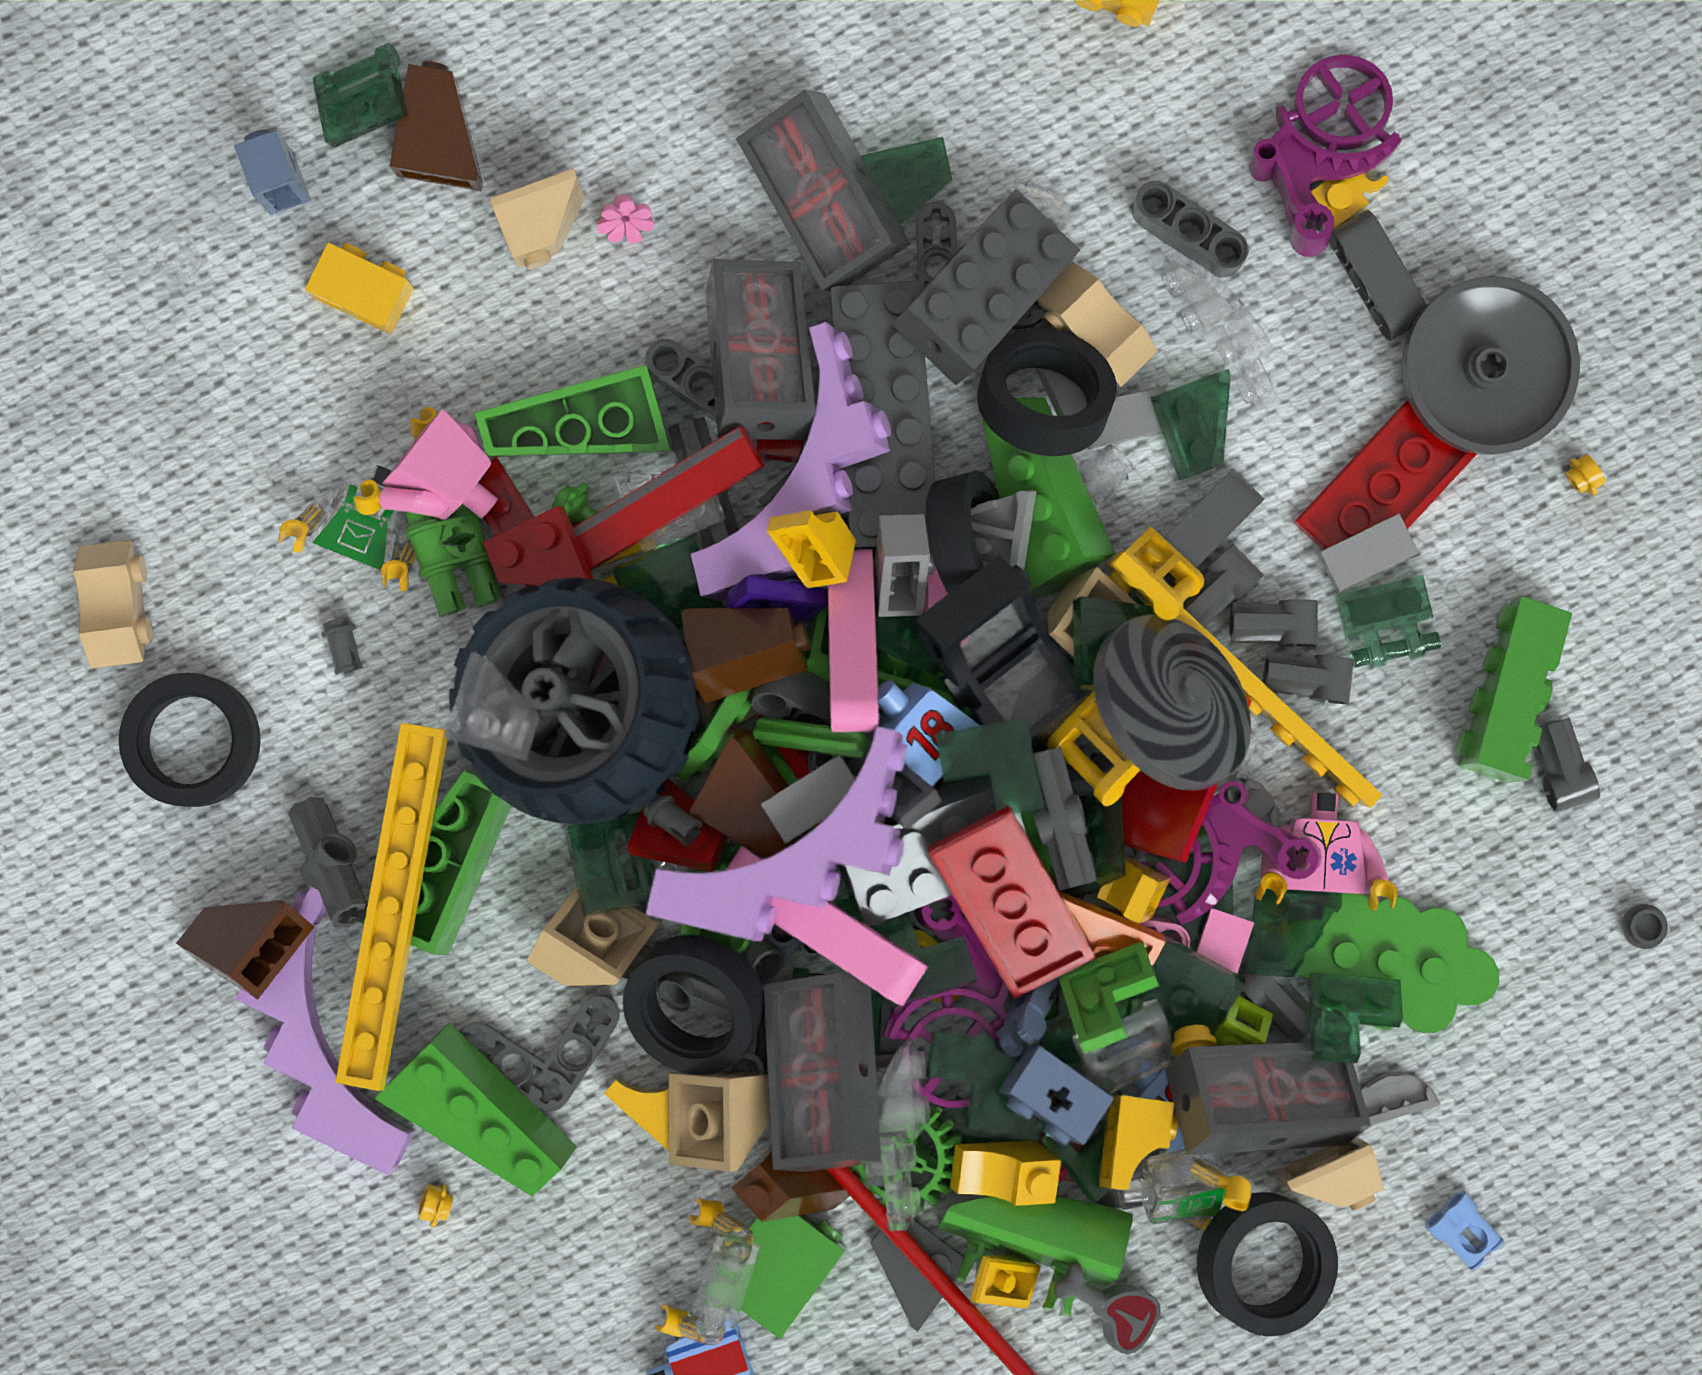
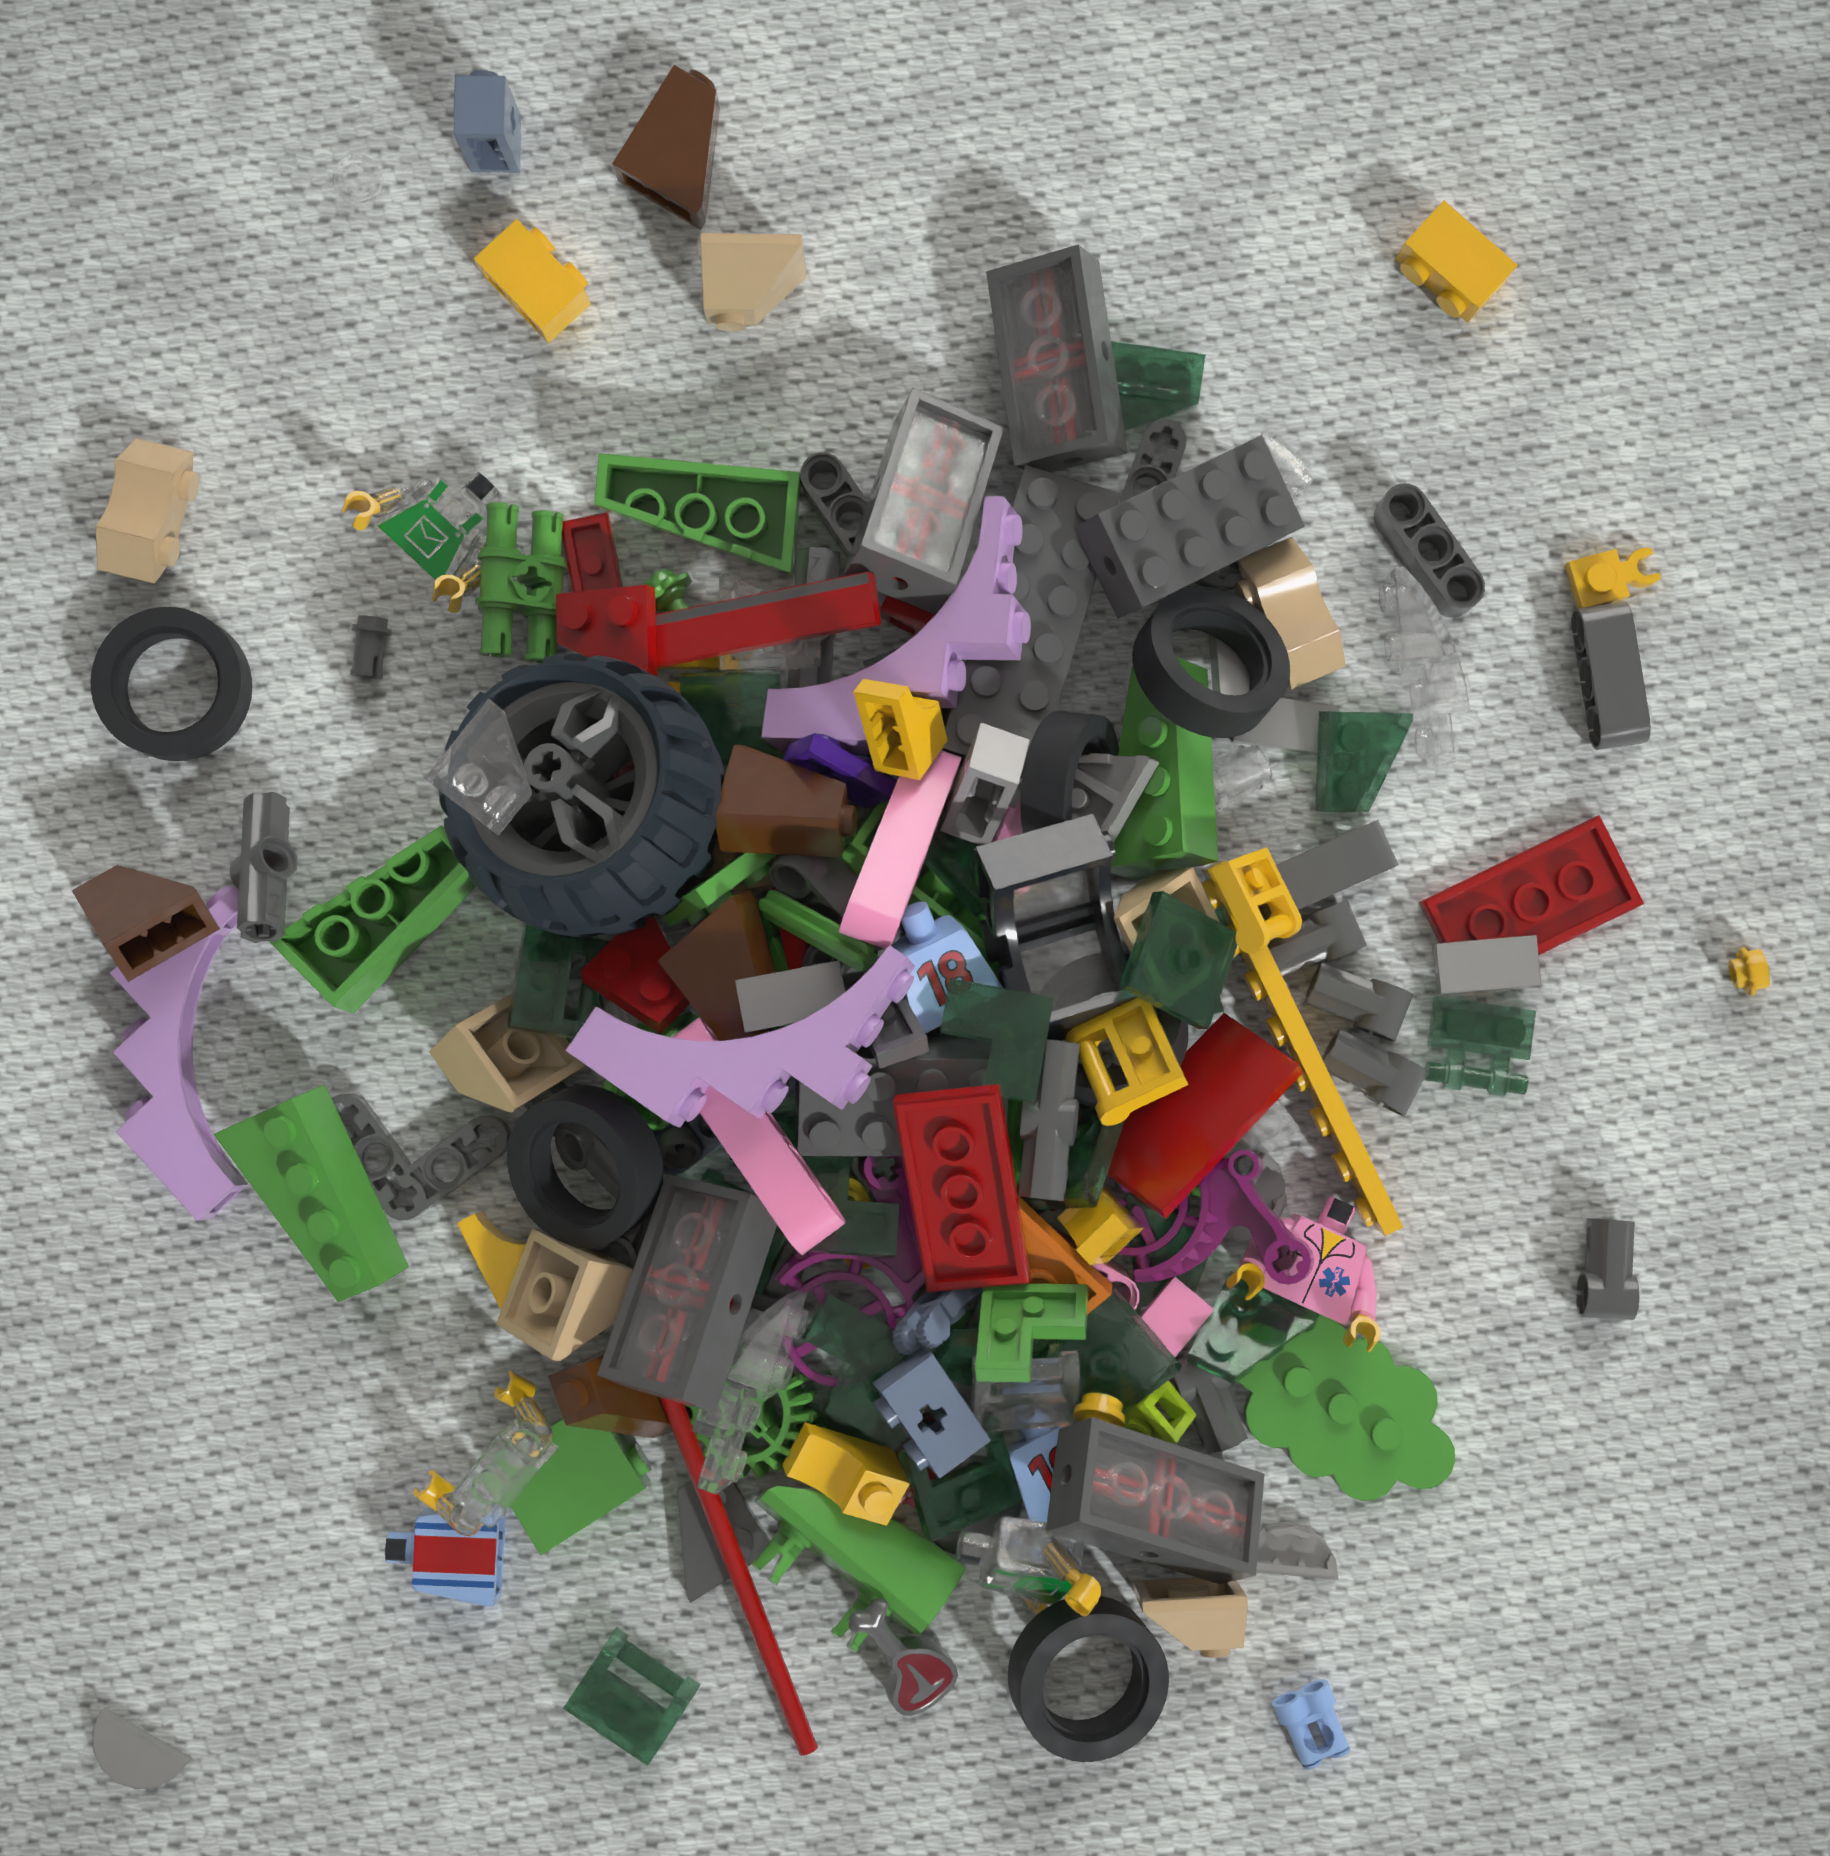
camera: 20 degrees right, 0 degrees up
(364, 106) = (611, 91): clear green plate -> none
(392, 907) = (307, 941): yellow plate -> none
(434, 473) = (531, 500): bright pink torso -> none
(435, 1204) = (237, 1269): yellow plate -> none
(625, 219) = (837, 315): bright pink plant -> none
(671, 818) = (638, 961): dark grey pin -> none
(1005, 1281) = (802, 1587): yellow slope -> none
(1132, 1132) = (997, 1484): yellow arch -> none
(1172, 702) = (1216, 1042): dish -> none
(1296, 162) = (1569, 523): magenta piece -> none
(1344, 1003) = (1277, 1433): clear green plate -> none
(1490, 365) = (1694, 816): dark grey dish -> none
(1513, 690) = (1586, 1170): bright green wedge -> none
(1644, 926) = (1628, 1474): dark grey plate -> none

